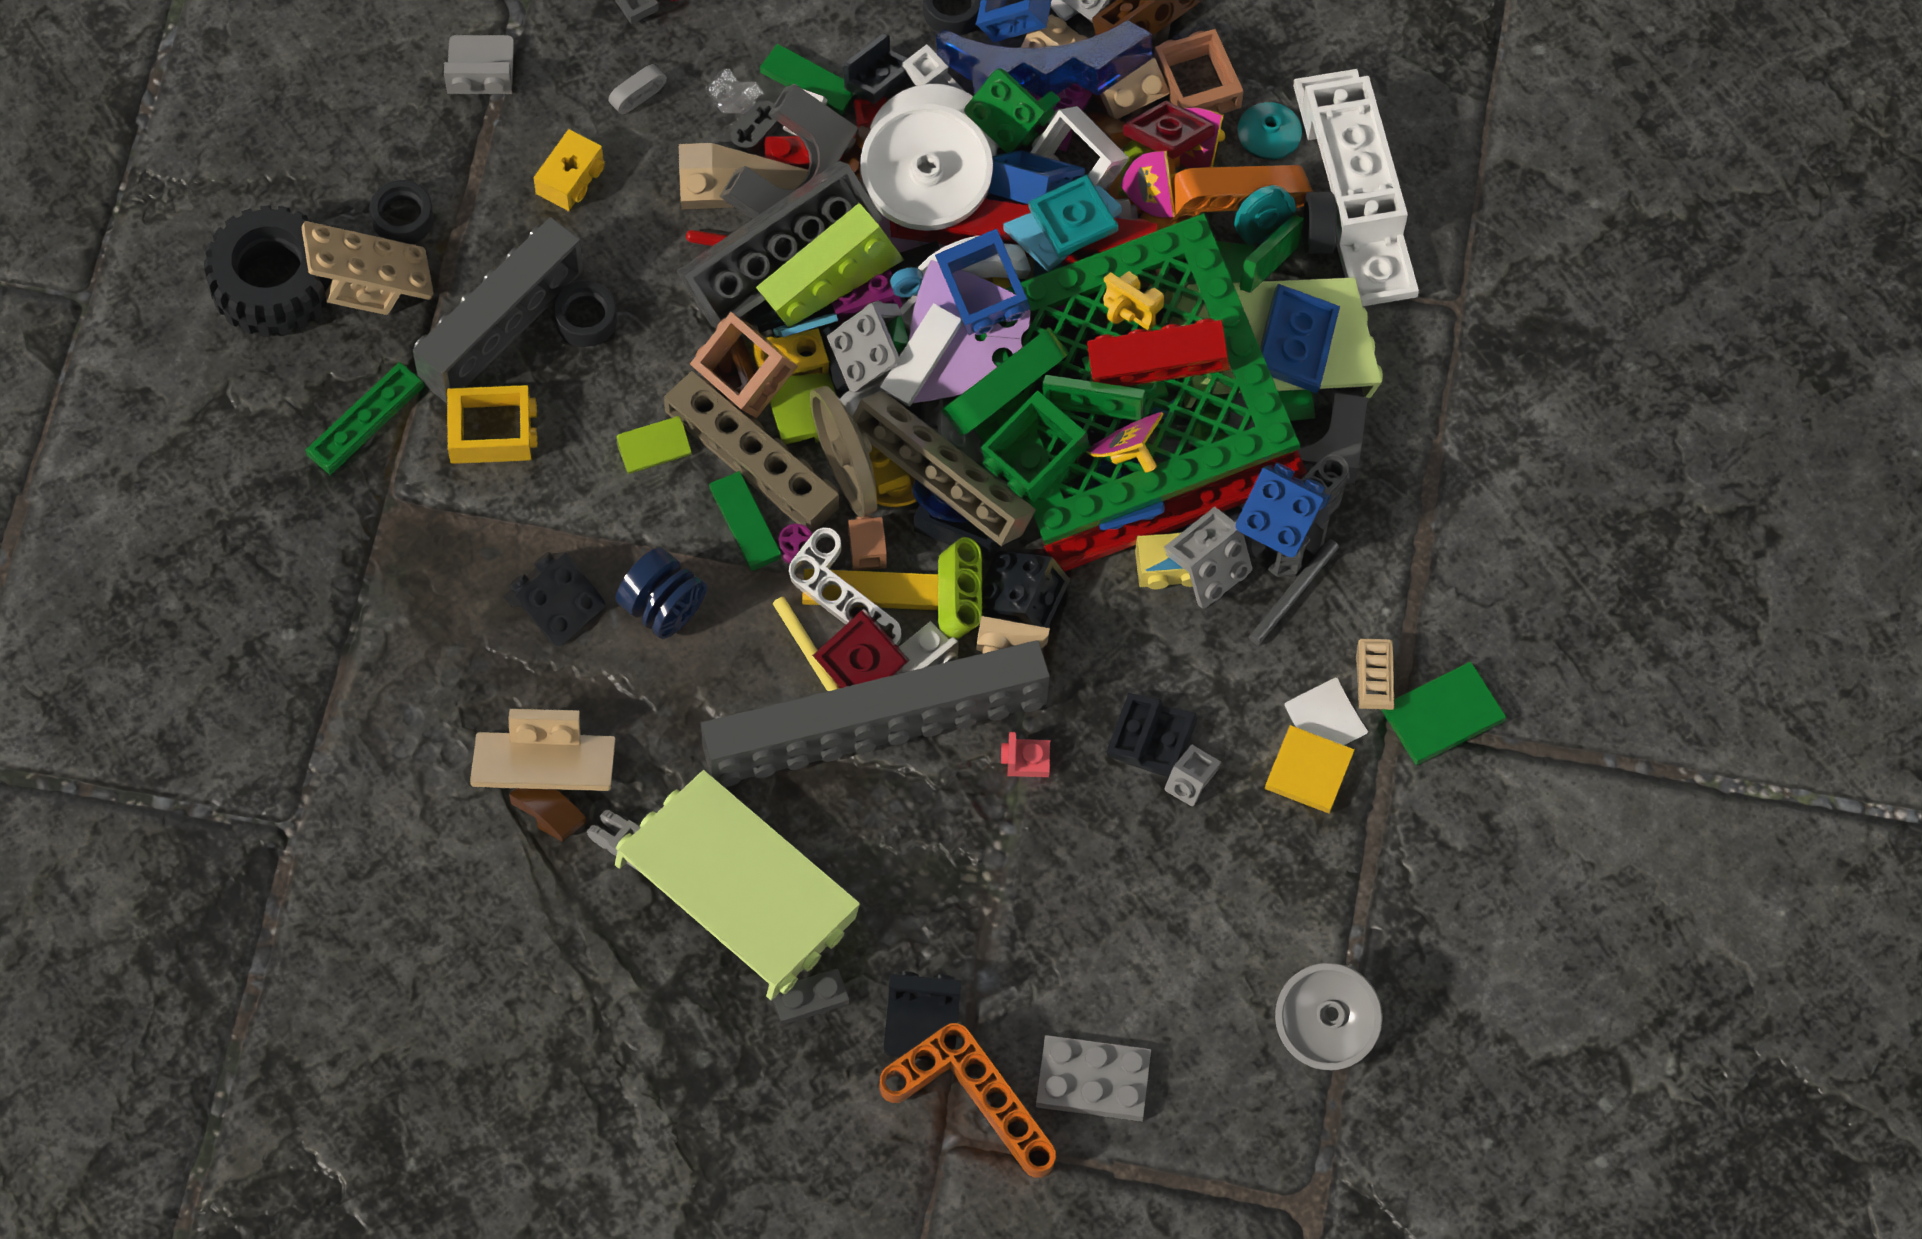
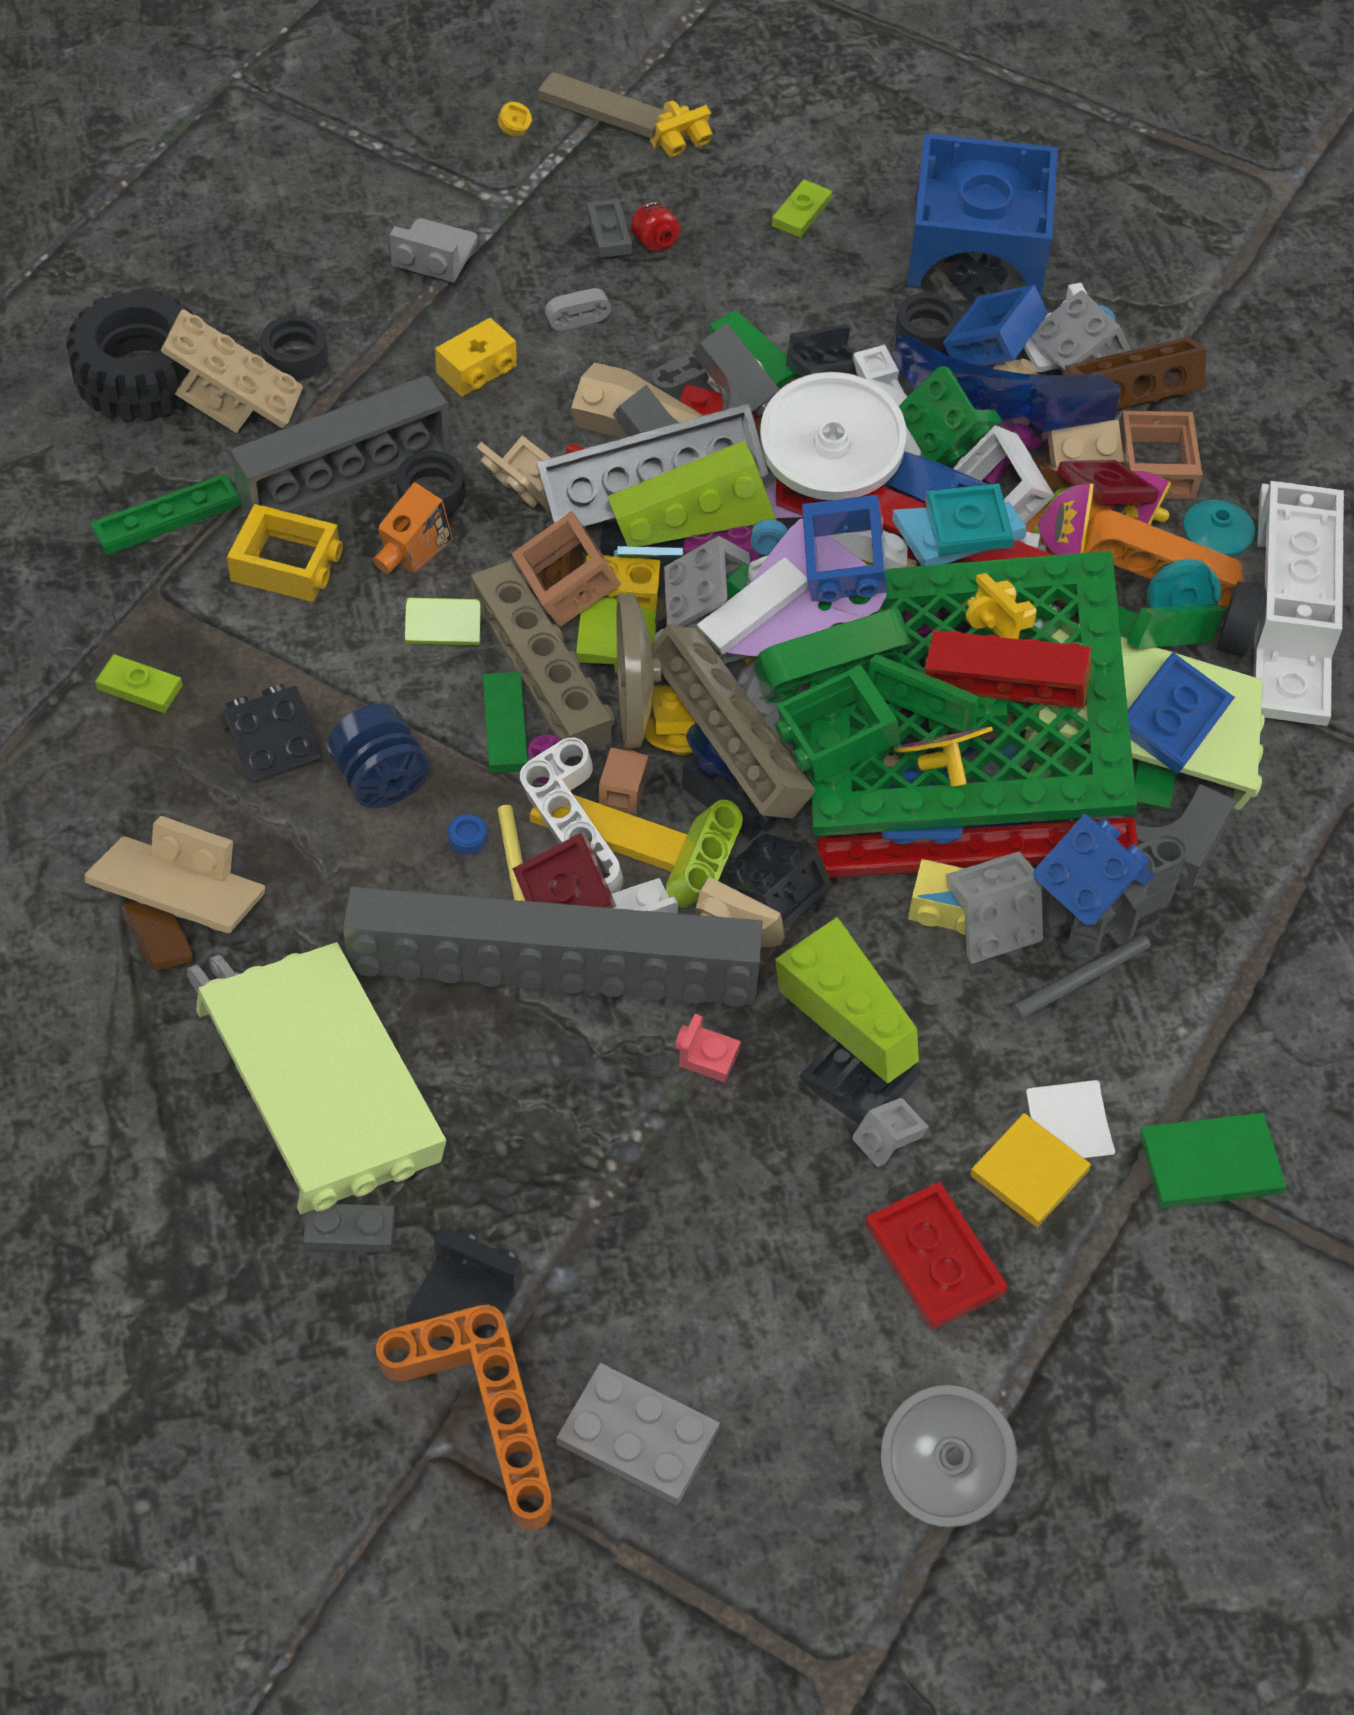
camera: 20 degrees right, 10 degrees down
(421, 589) = (139, 683): none -> lime plate
(594, 370) = (413, 531): none -> orange torso
(658, 271) = (518, 470): none -> tan bracket
(732, 95) = (668, 338): clear bracket -> none
(757, 633) = (467, 834): none -> blue tile
(1123, 678) = (849, 1000): none -> lime wedge
(1262, 863) = (935, 1255): none -> red plate
(1375, 654) = (1154, 1076): tan slope -> none

